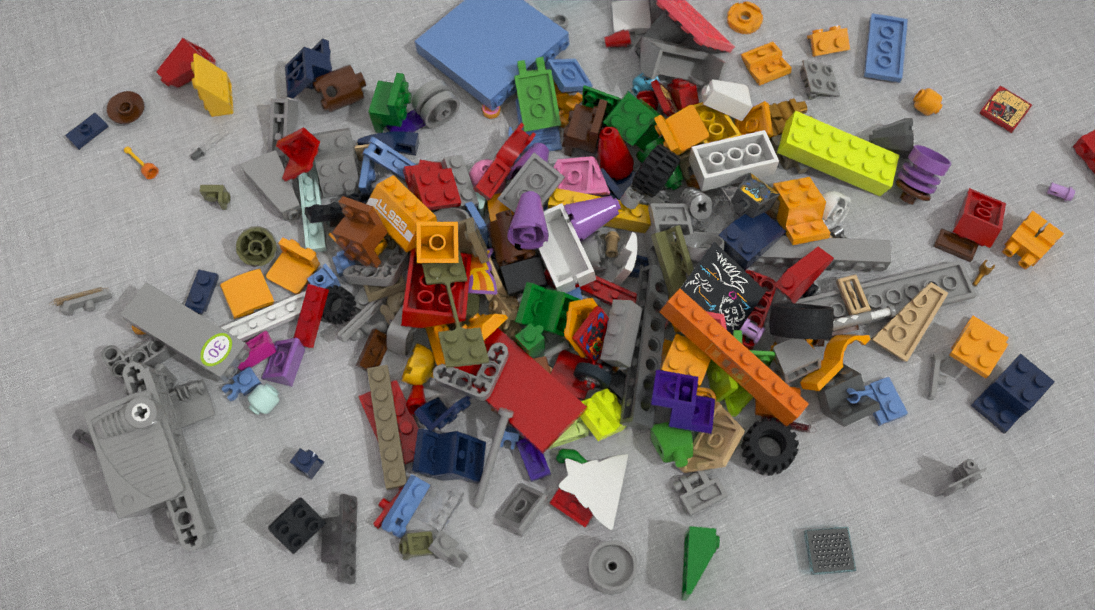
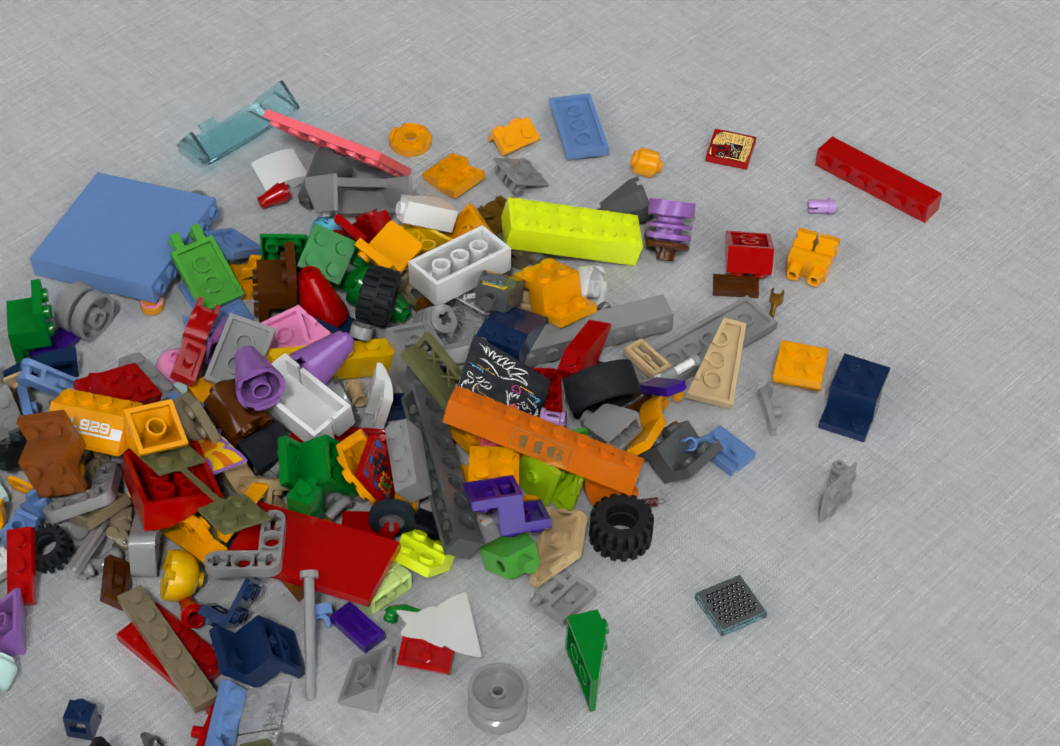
camera: 25 degrees left, 20 degrees down
(852, 334) = (662, 386): none -> dark purple tile

